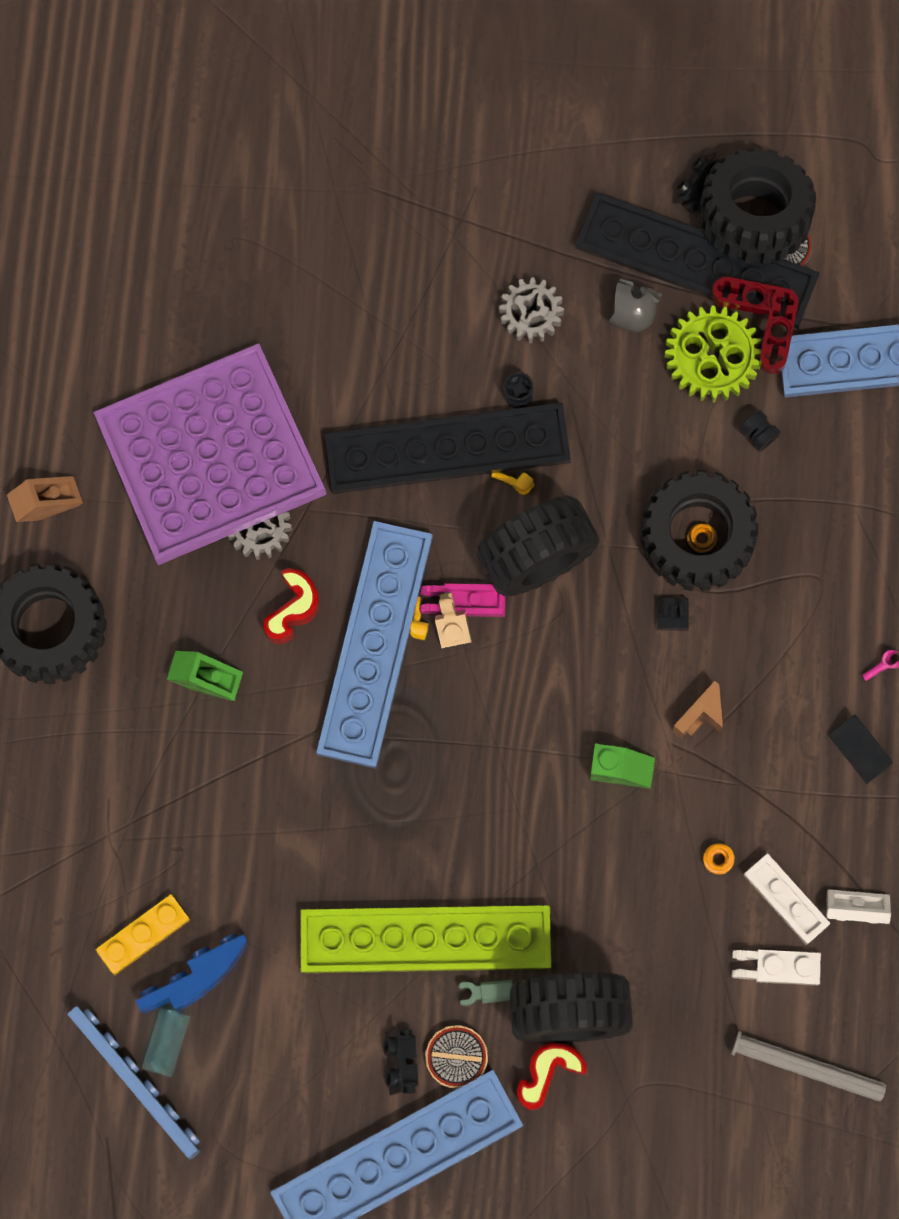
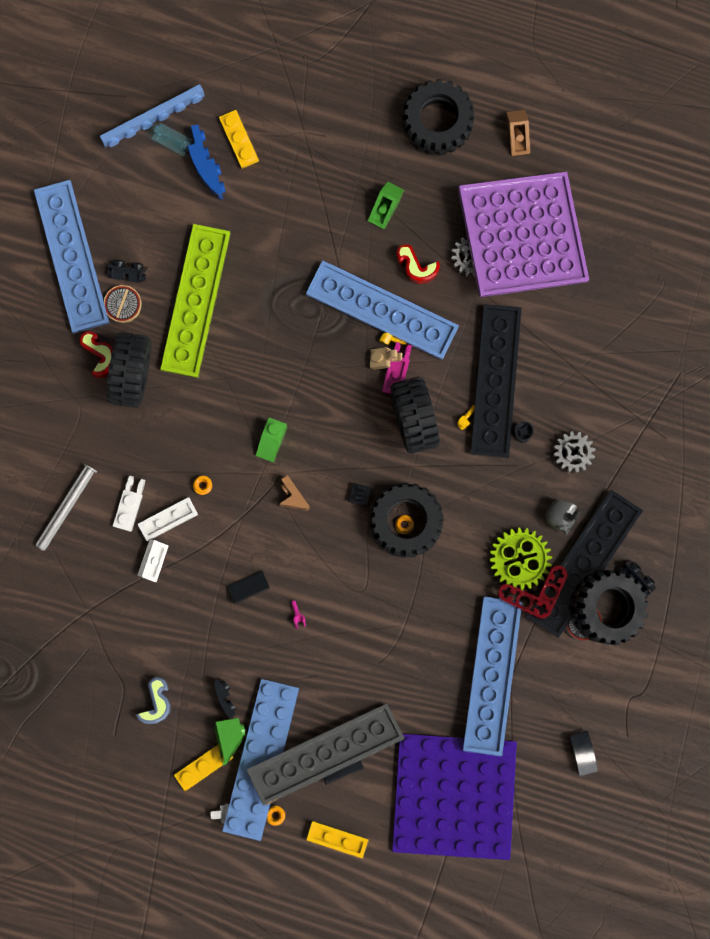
camera: 100 degrees right, 5 degrees up
(488, 992) = (155, 331): sand green bar -> none
(759, 431) = (463, 575): black wheel -> none

